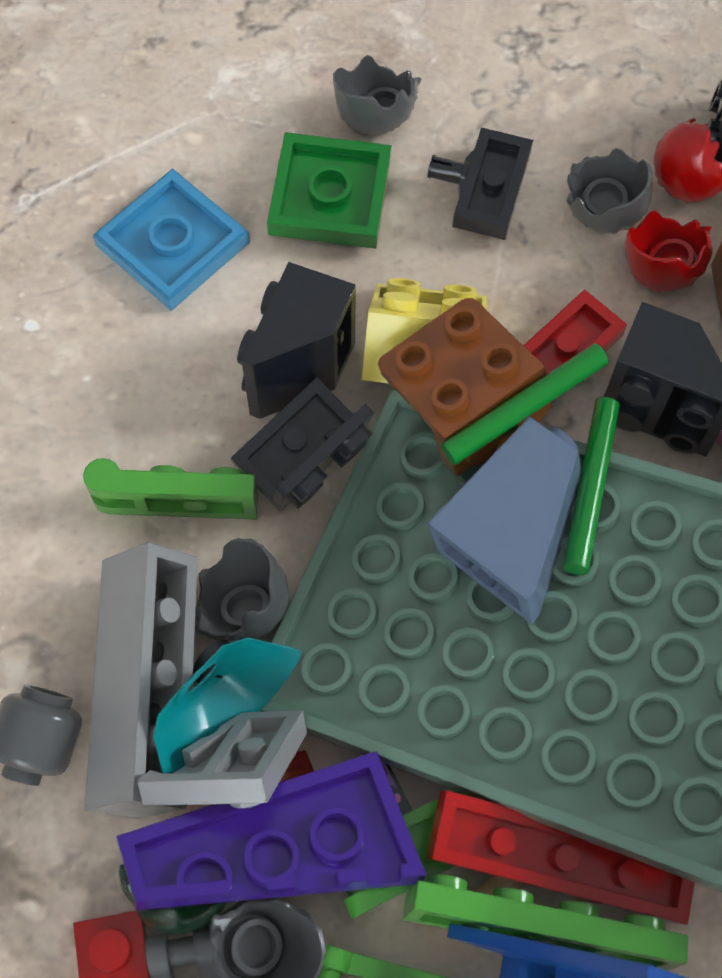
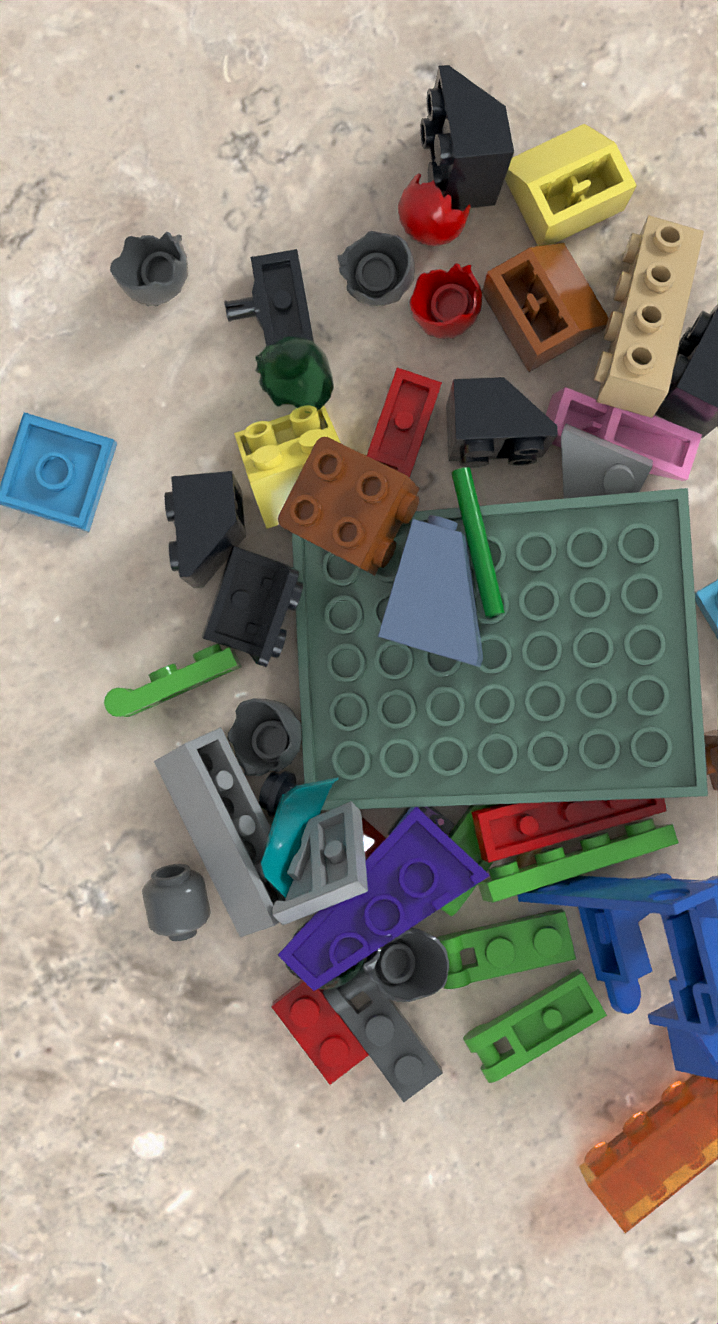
camera: 25 degrees left, 20 degrees up
(329, 190) = (157, 371): green plate -> none
(471, 245) = (295, 373): none -> clear green hair
(524, 404) = (405, 510): green bar -> none

